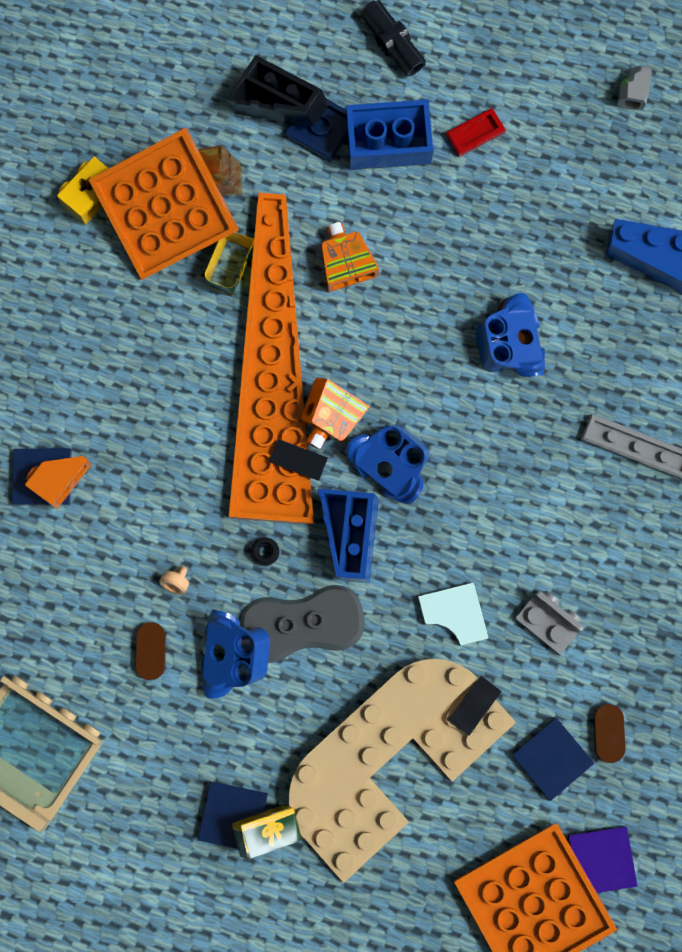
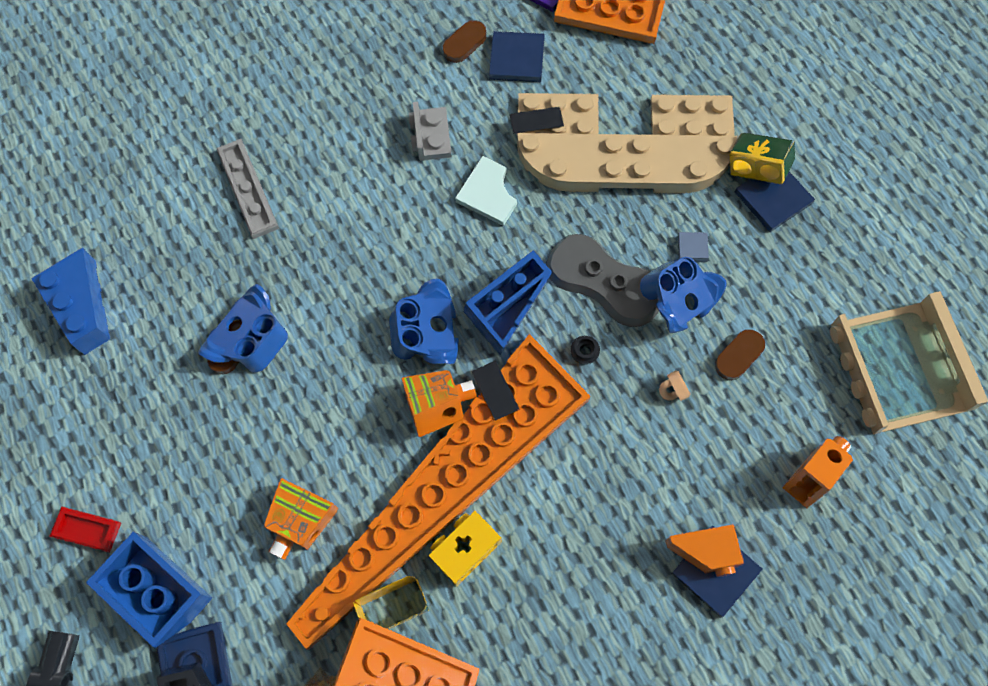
camera: 130 degrees left, 10 degrees down
(24, 594) = (819, 471): none -> orange torso
(216, 323) = (482, 543): none -> yellow brick
(258, 710) = (693, 246): none -> sand blue tile

